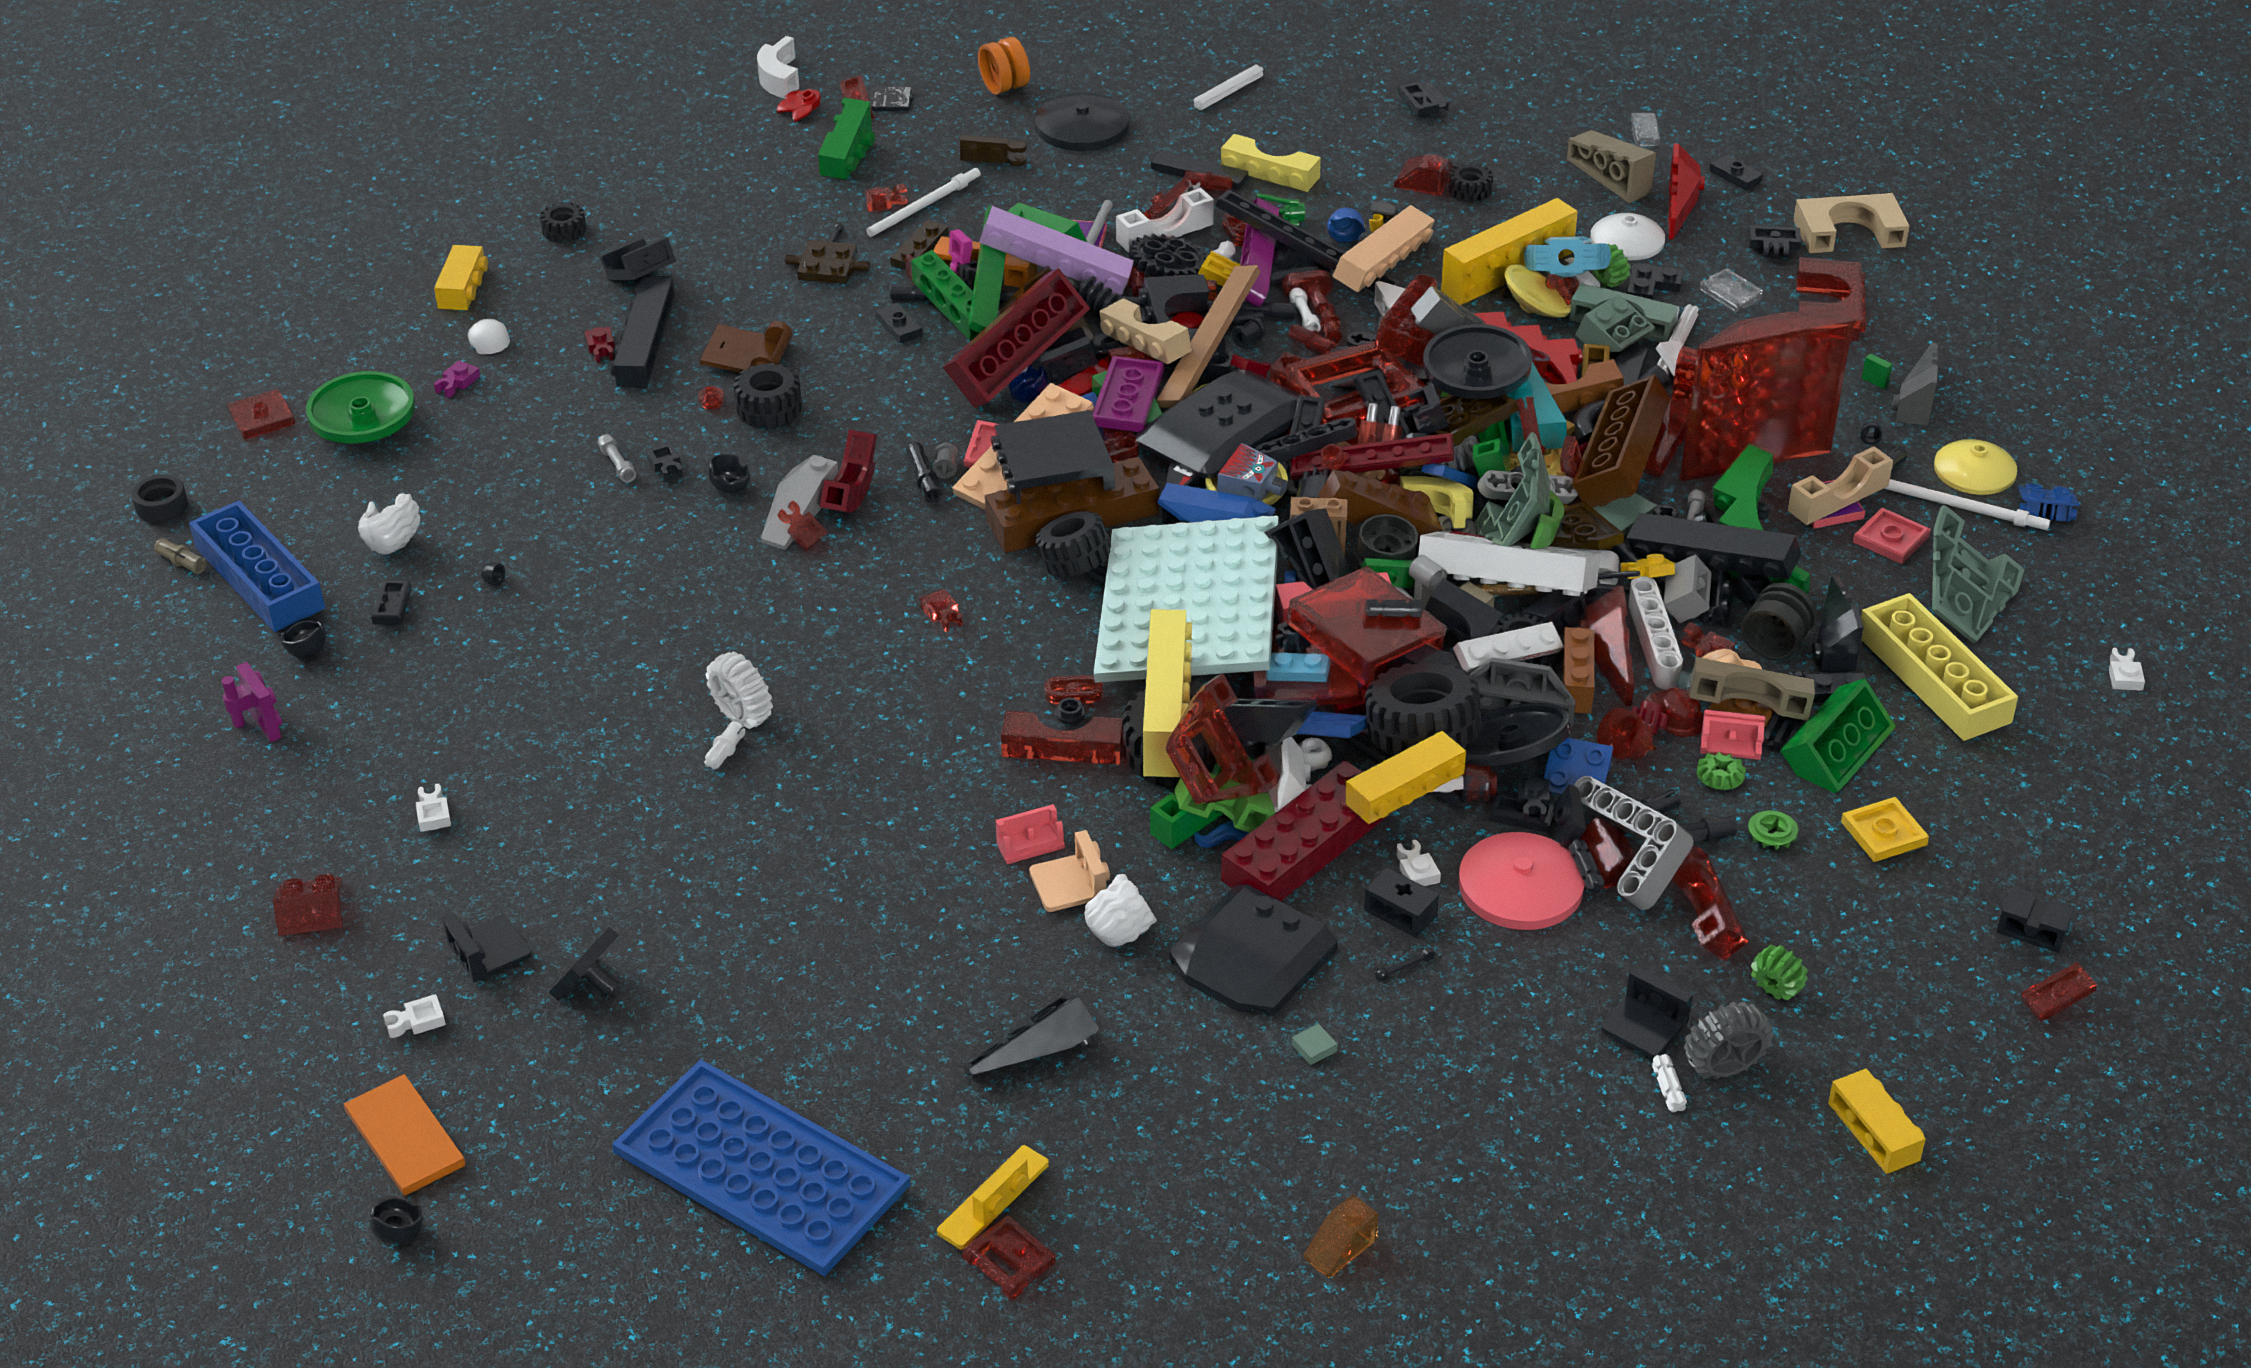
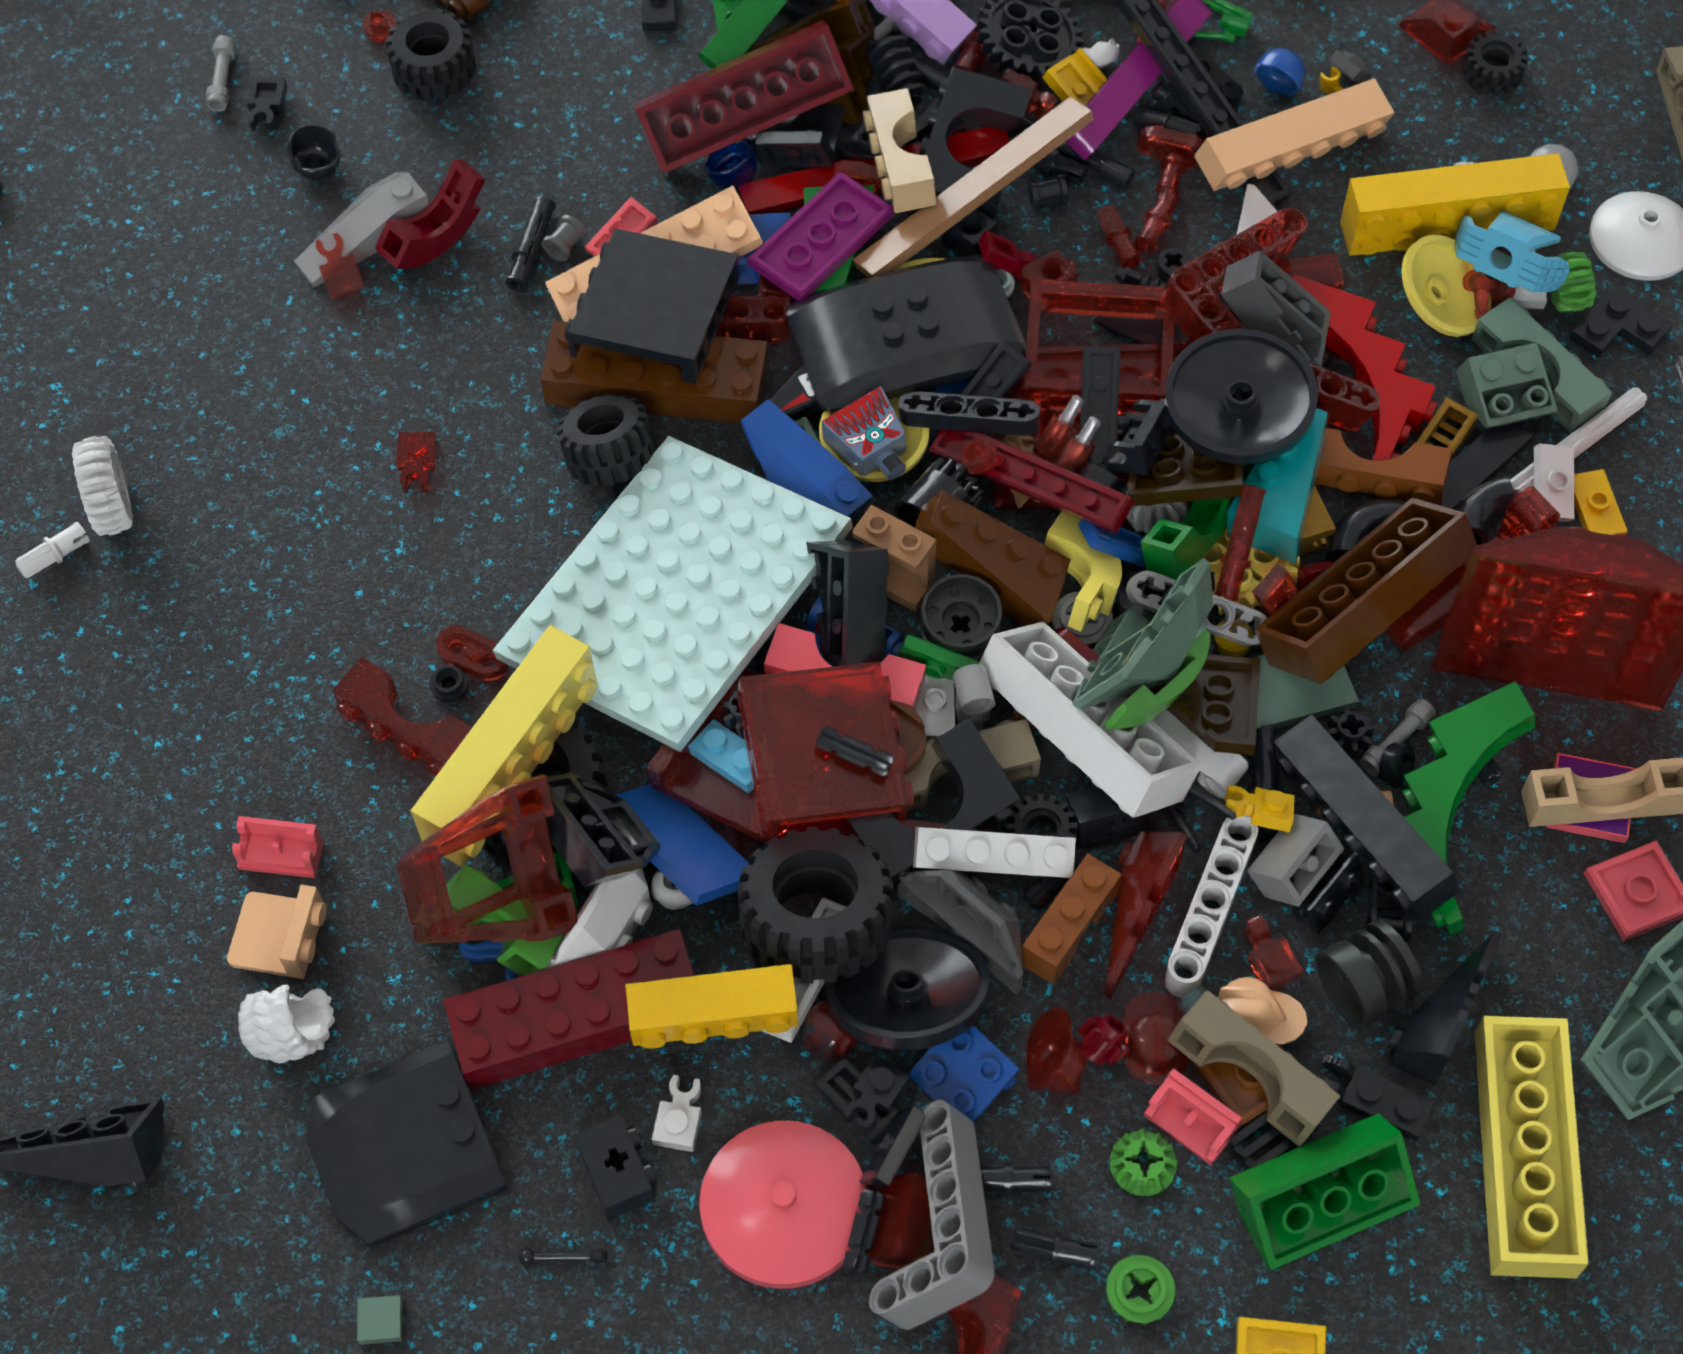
camera: 30 degrees right, 20 degrees up
(1309, 321) = (1137, 205): white bar -> none

